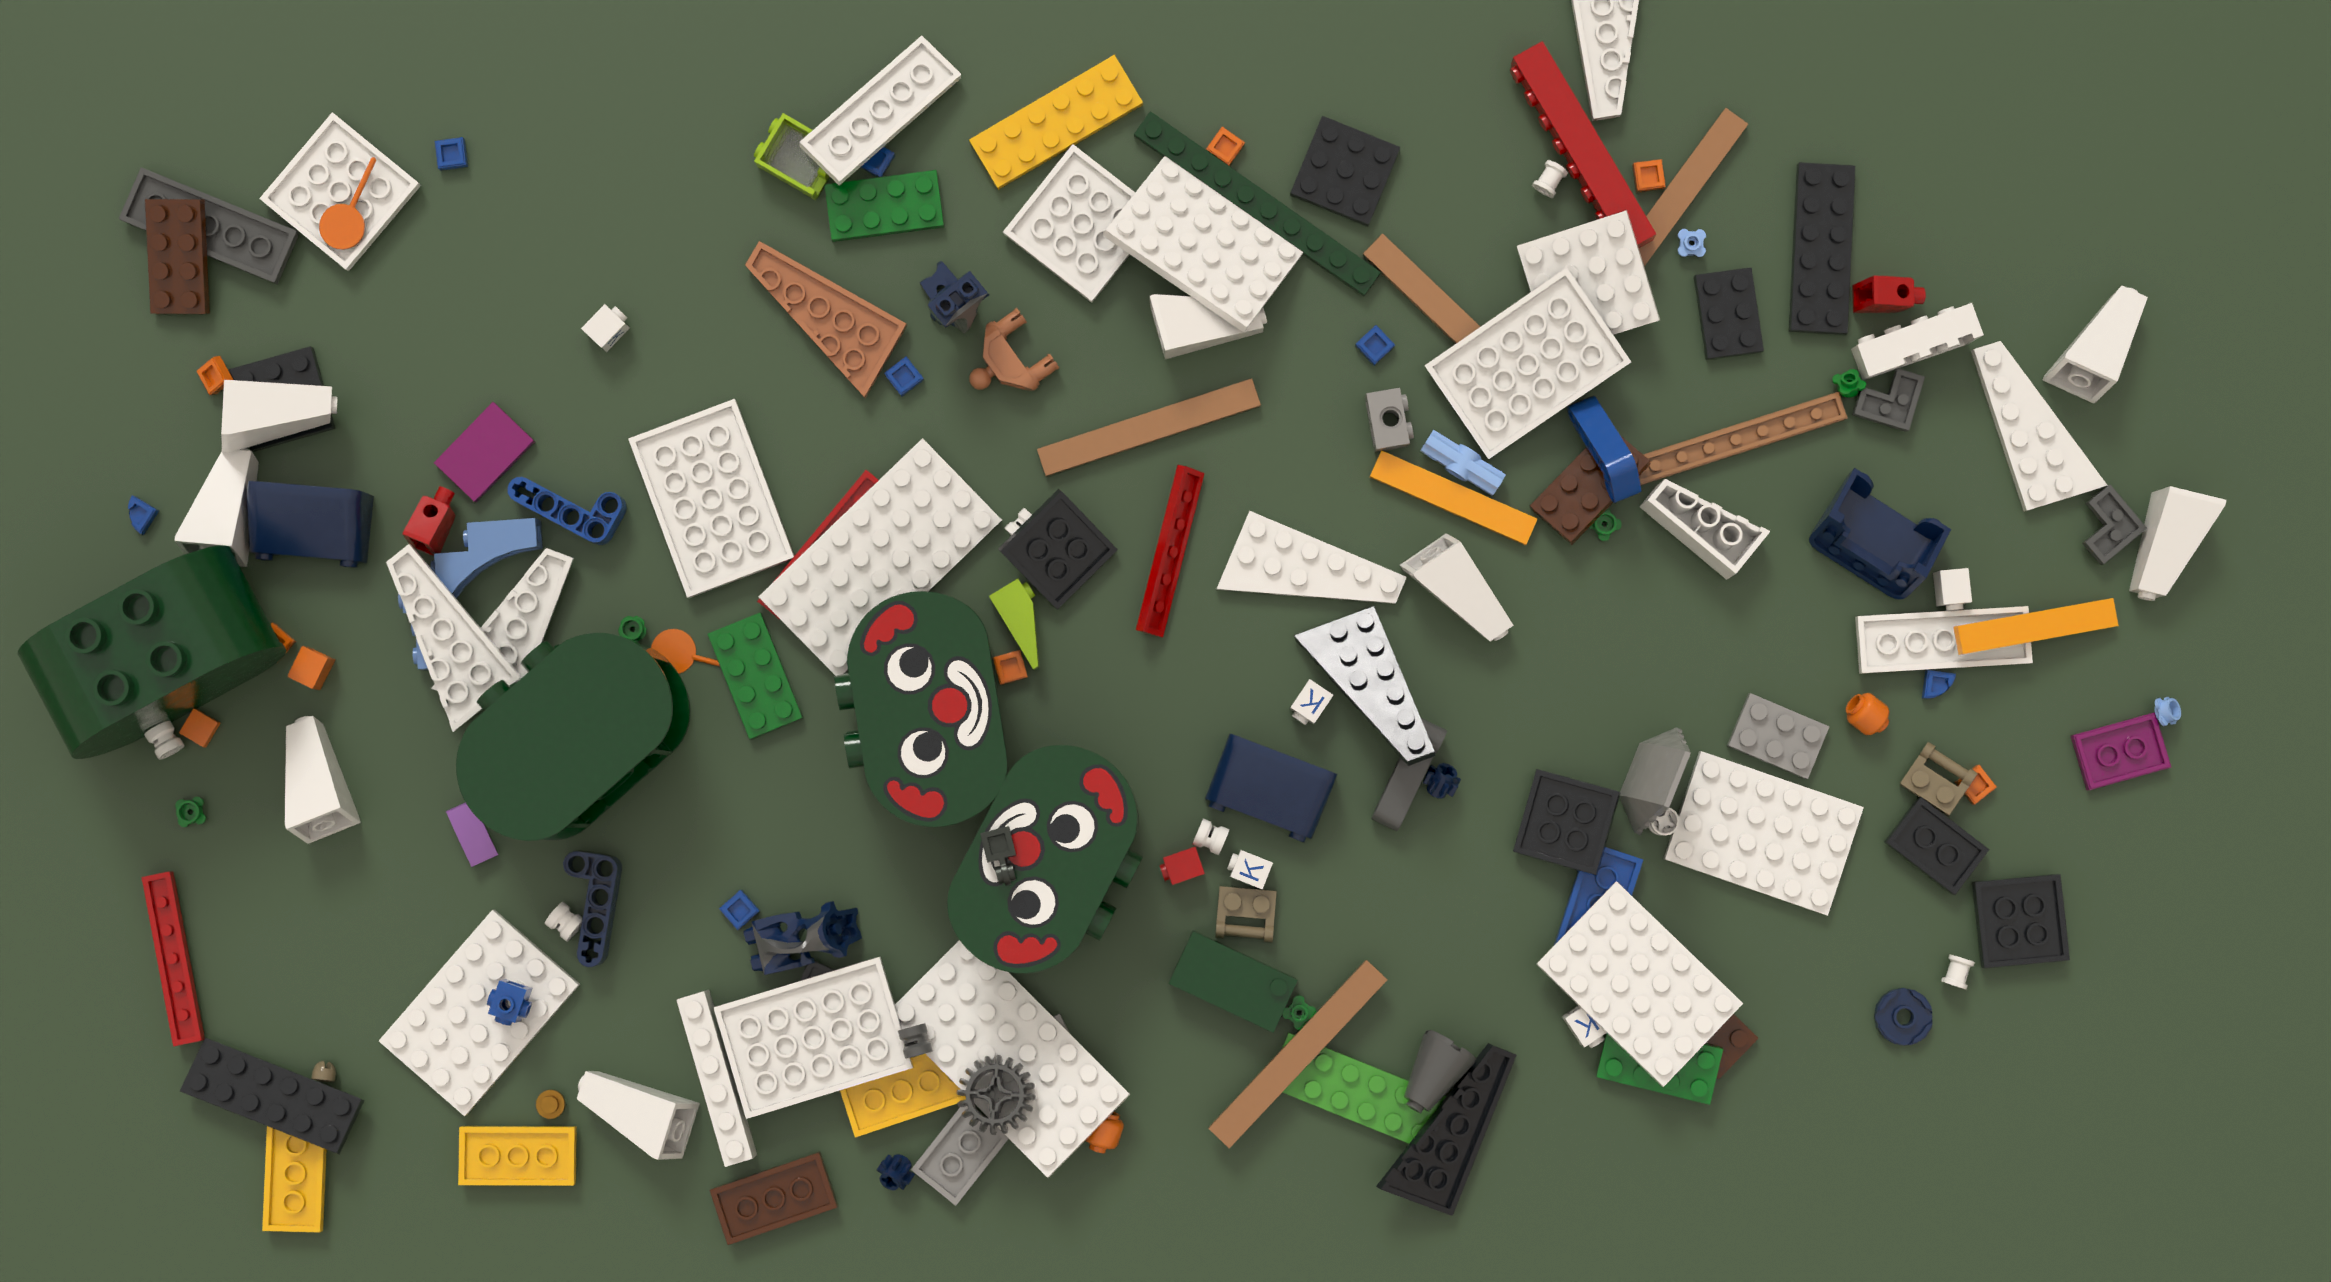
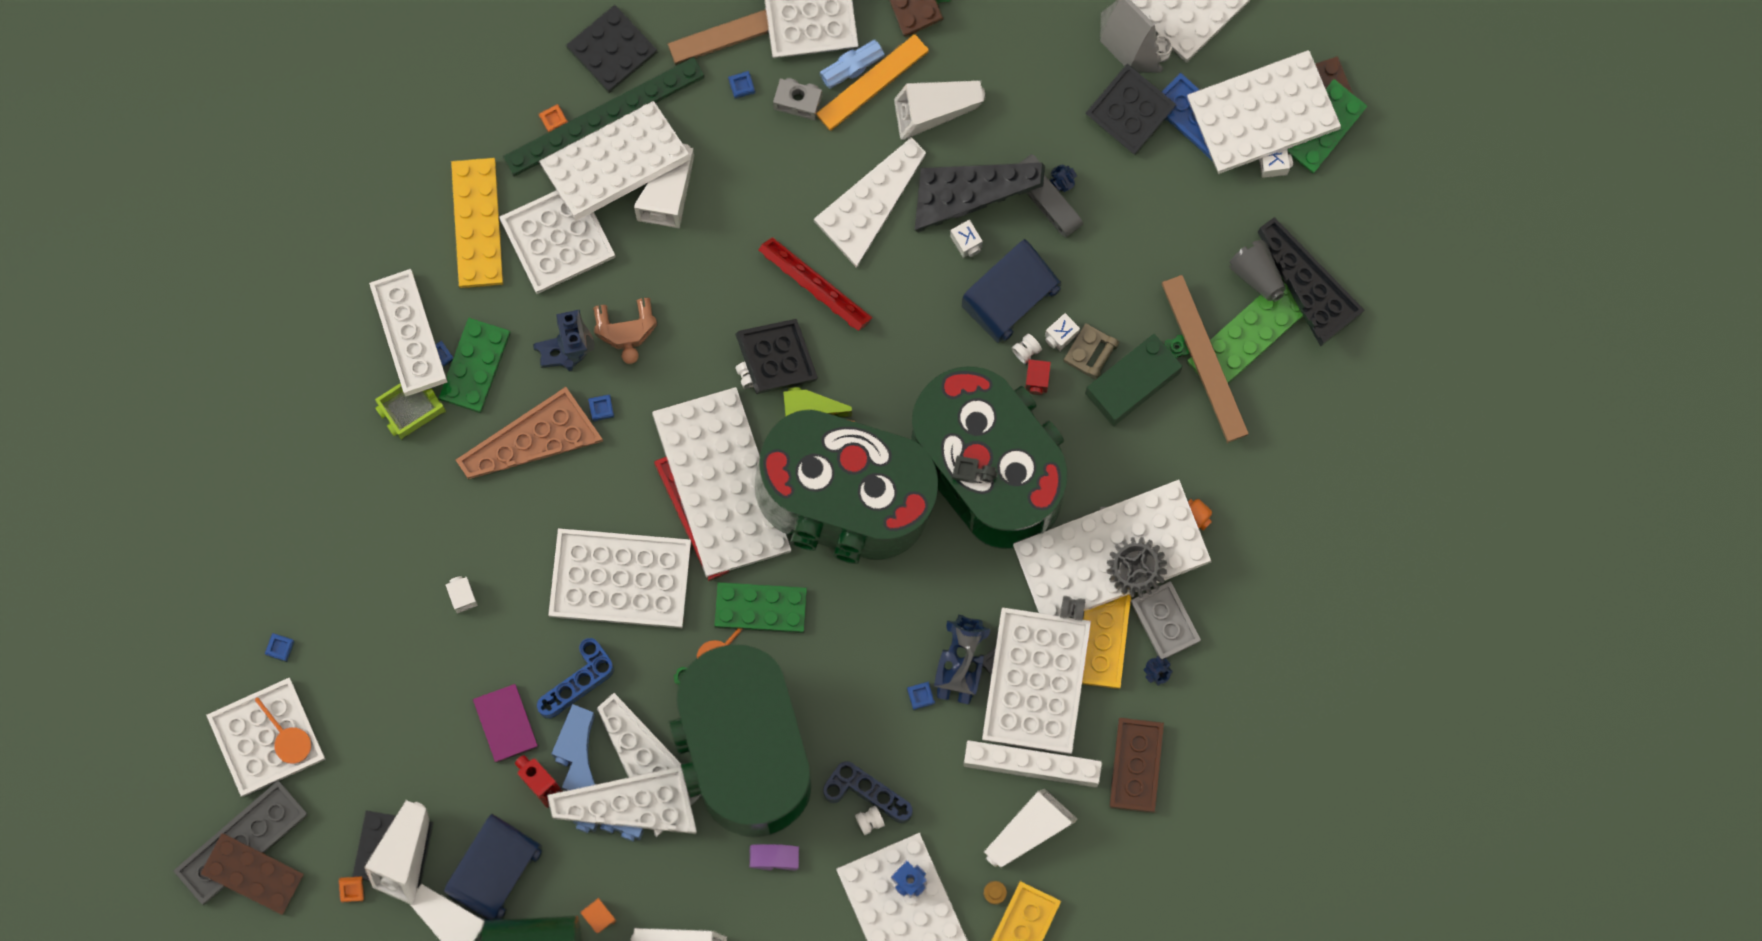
camera: 65 degrees left, 10 degrees down
(1148, 427) = (721, 260): medium nougat tile -> none

